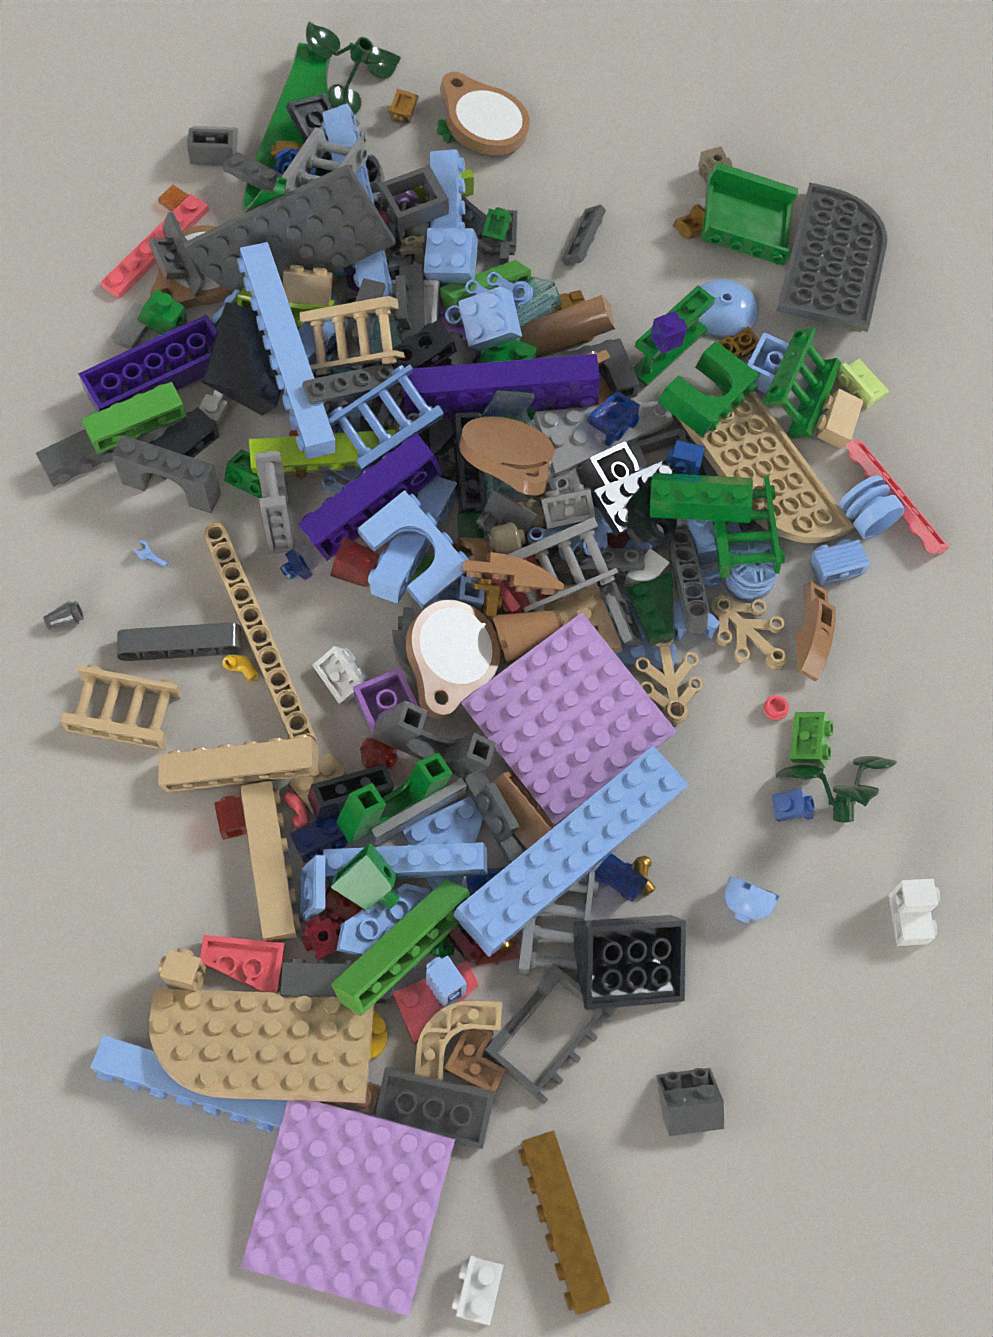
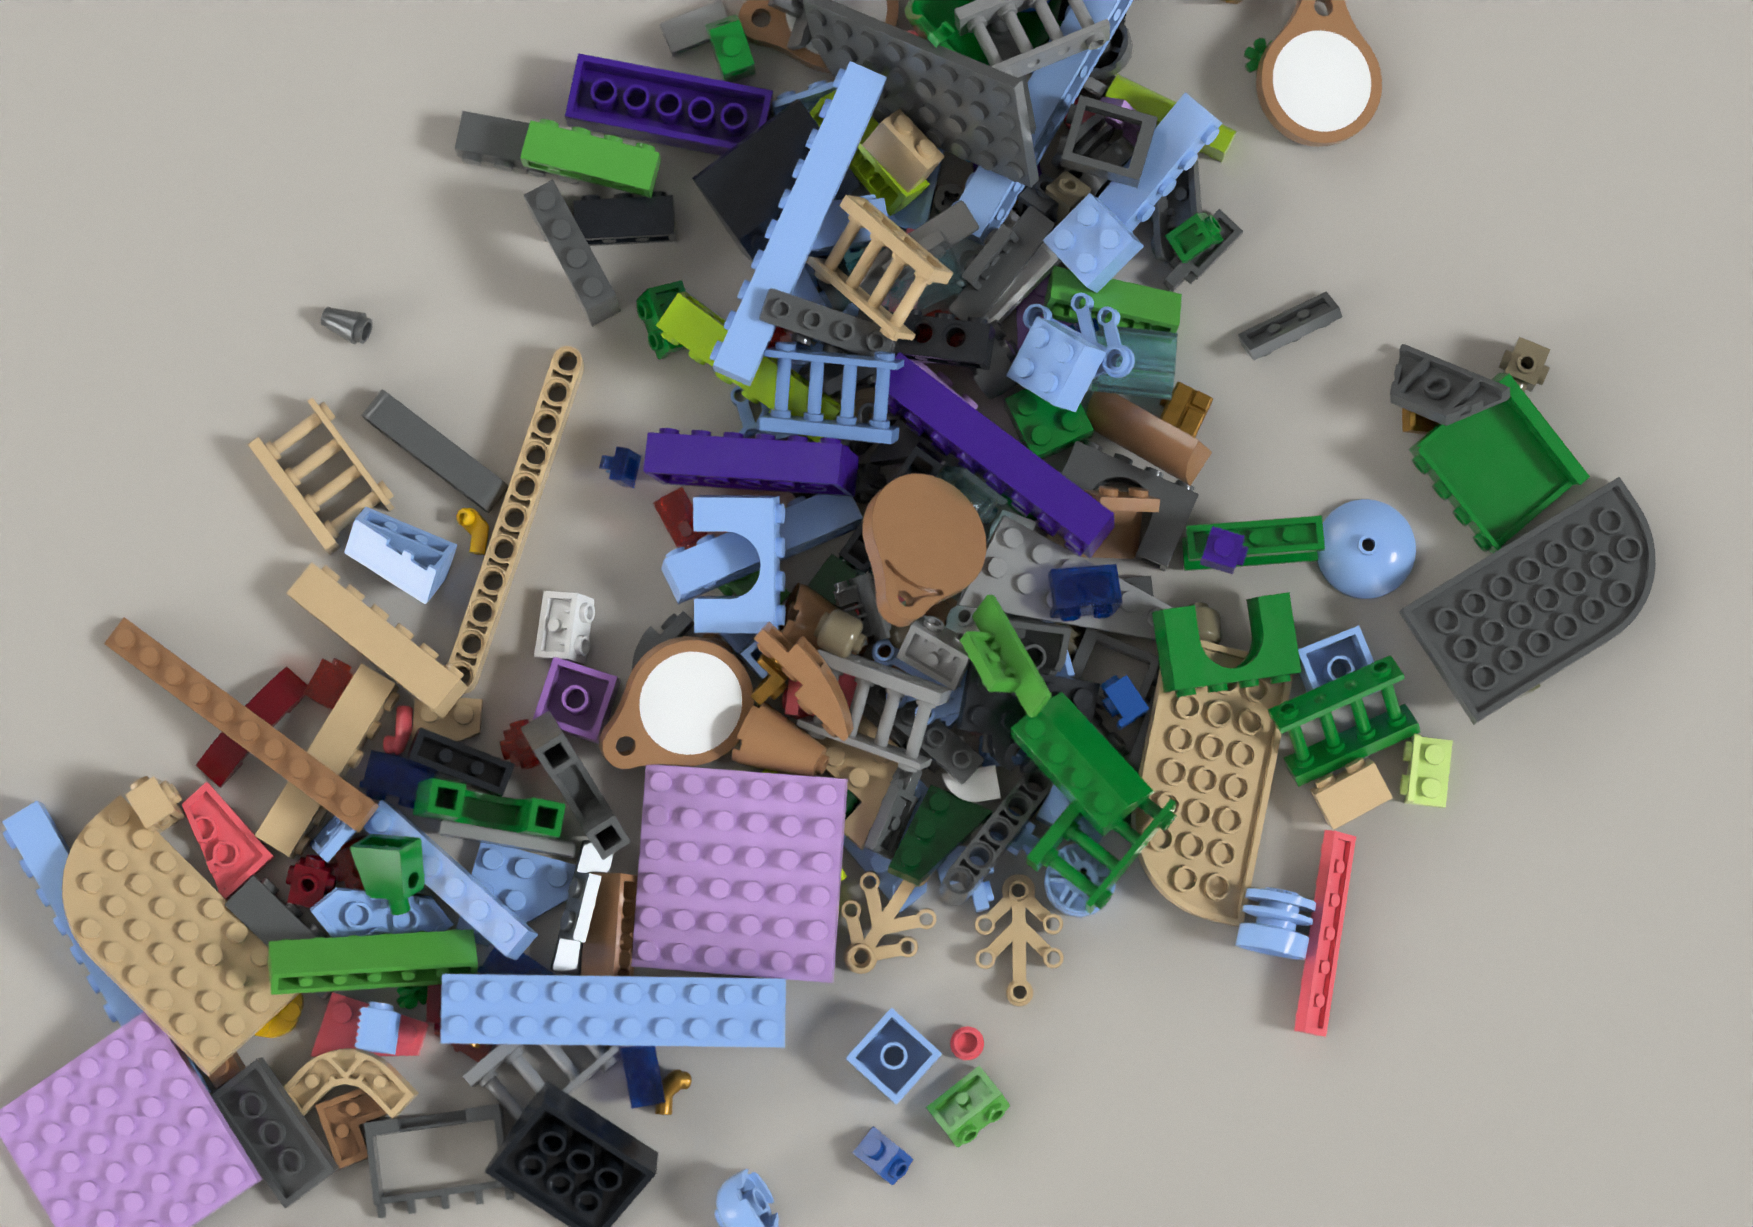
camera: 50 degrees right, 15 degrees up
(148, 554) = (488, 322): light blue hand -> none
(197, 878) = (242, 725): none -> medium nougat plate
(203, 883) = (271, 705): none -> dark red slope
(207, 708) = (400, 553): none -> light blue wedge
(214, 406) = (692, 204): white plate -> none
(274, 502) = (629, 406): light grey fence -> none
(611, 470) = (1003, 658): none -> bright green bracket
(689, 198) = (1441, 388): none -> dark grey wing
(741, 344) = (1328, 607): pearl gold slope -> none
(748, 744) = (893, 1056): none -> light blue brick
(817, 633) = (1081, 1006): medium nougat slope -> none
(839, 561) = (1187, 949): light blue brick -> none
(846, 795) = (929, 1201): dark green plant -> none

